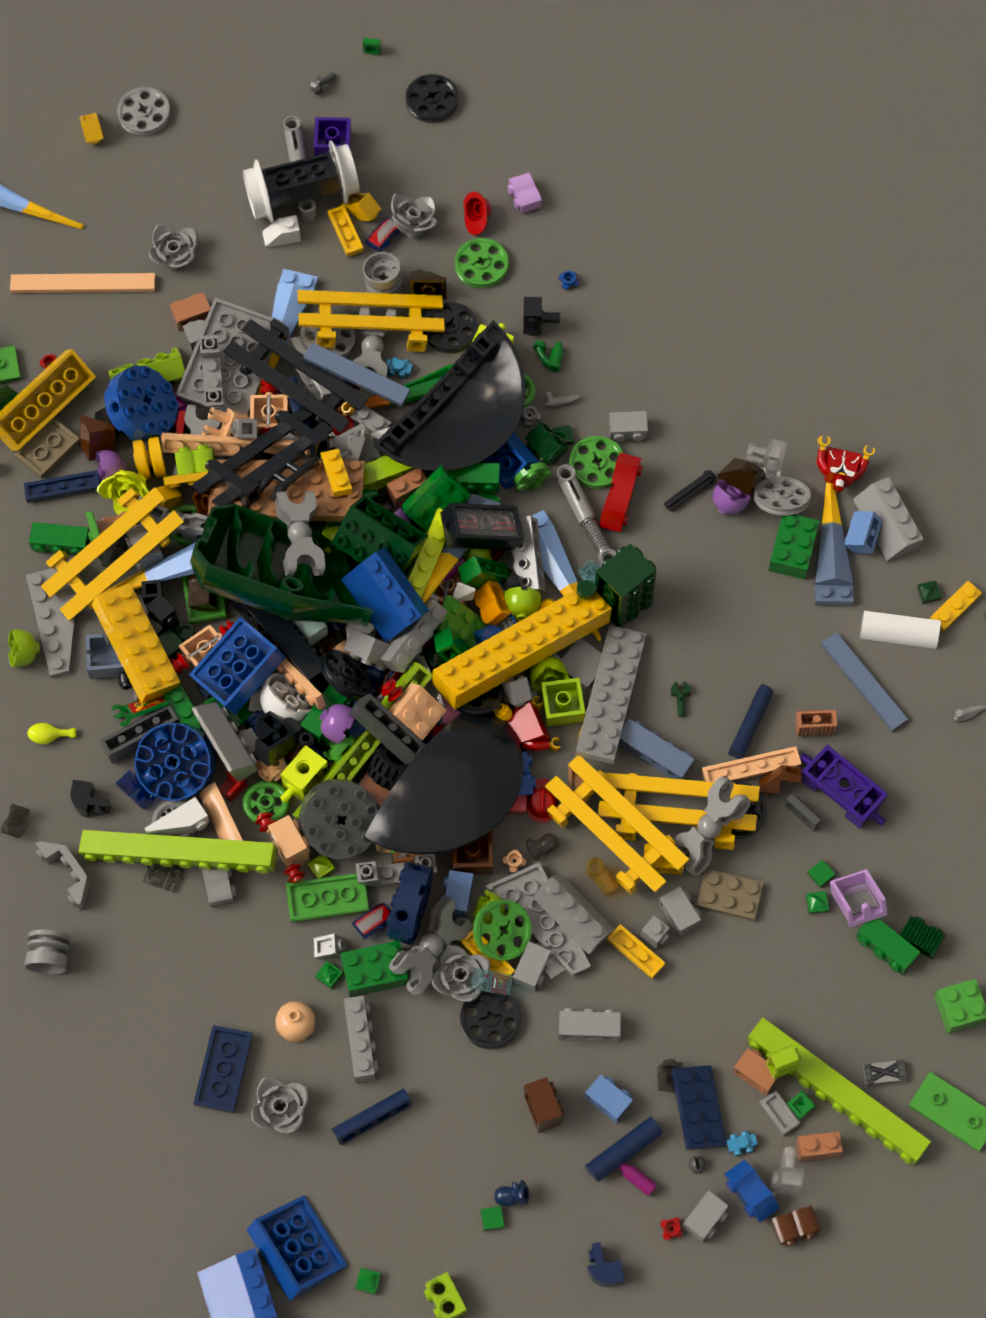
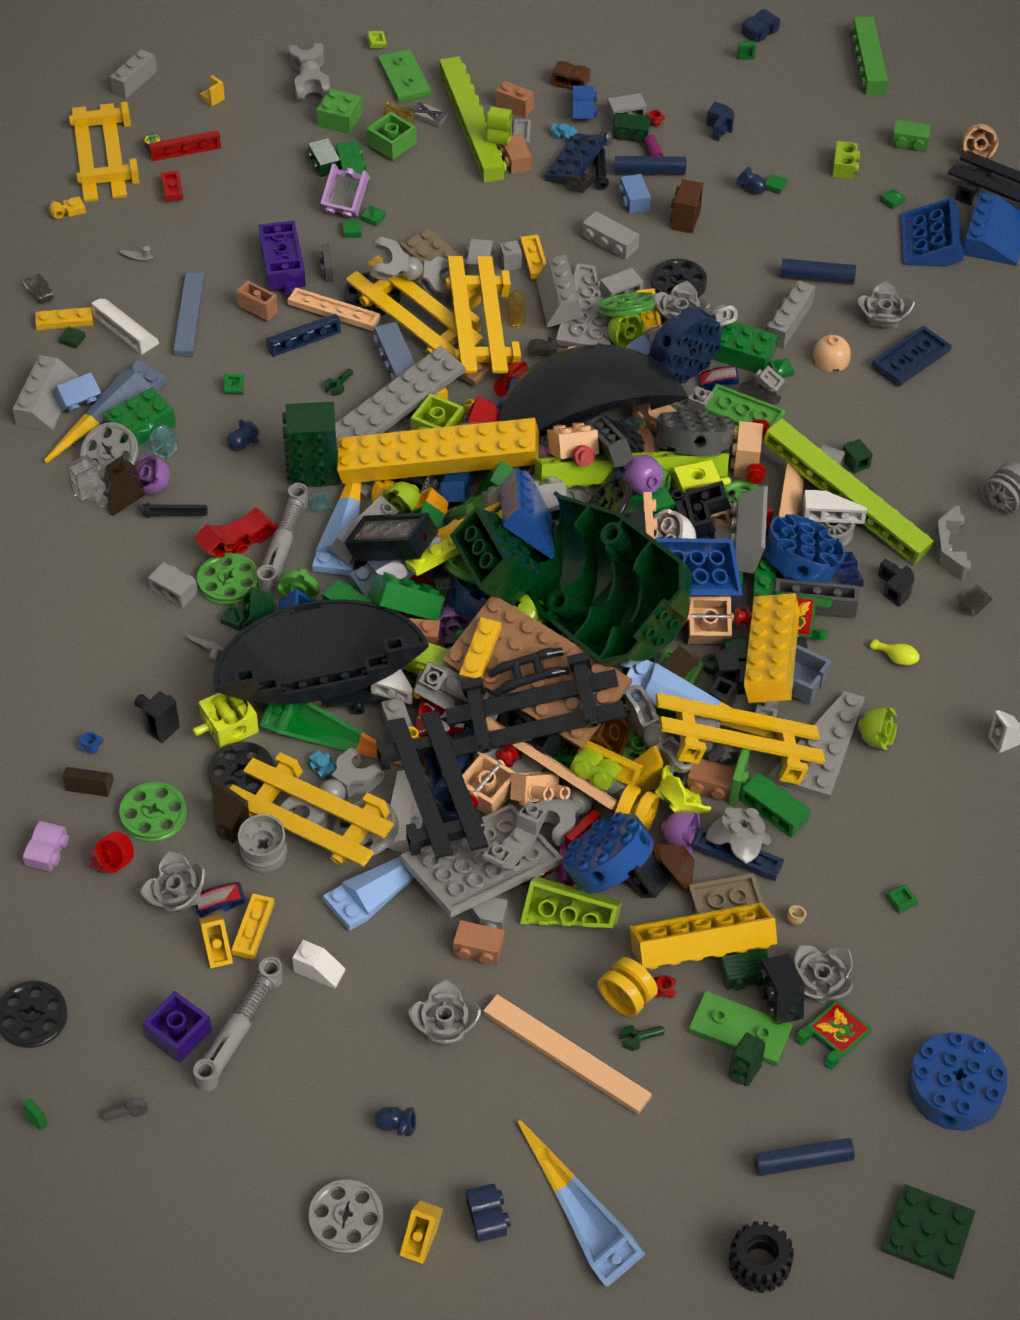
camera: 145 degrees left, 15 degrees down
(44, 323) = (638, 1036): none -> dark green bar
(60, 160) = (486, 1212): none -> dark blue brick
(67, 332) = (627, 987): none -> yellow wheel
(75, 508) = (743, 832): none -> light grey brick
(158, 173) = (393, 1118): none -> dark blue animal
(200, 911) = (857, 456): none -> dark green brick
(244, 428) = (527, 755): light grey brick -> none
(299, 533) = (556, 605): light grey piece -> none
(301, 180) = (258, 977): brick -> none
(325, 926) = (752, 388): none -> clear smoke plate
(356, 374) = (380, 742): sand blue tile -> none
(463, 592) = (449, 516): white slope -> none
(491, 982) = (662, 285): clear light blue tile -> none
(511, 582) = (399, 508): black tile -> none
(542, 251) = (87, 781): none -> dark brown brick
(554, 362) = (174, 681): green plant -> none
(586, 589) = (347, 456): dark green tile -> none
(665, 1112) = (601, 181): none -> black axle
(680, 1192) = (631, 127): none -> dark green brick
(703, 587) = (241, 437): none -> dark blue animal
(755, 538) = (164, 441): none -> clear light blue brick
(758, 633) = (233, 384): none -> green tile
(771, 782) = (322, 284): reddish brown slope -> none
(787, 1179) = (554, 90): clear brick -> none
(841, 466) = (36, 444): red torso -> none
(884, 1003) = (391, 135): none -> bright green brick
(907, 1045) = (406, 112): none -> clear yellow piece

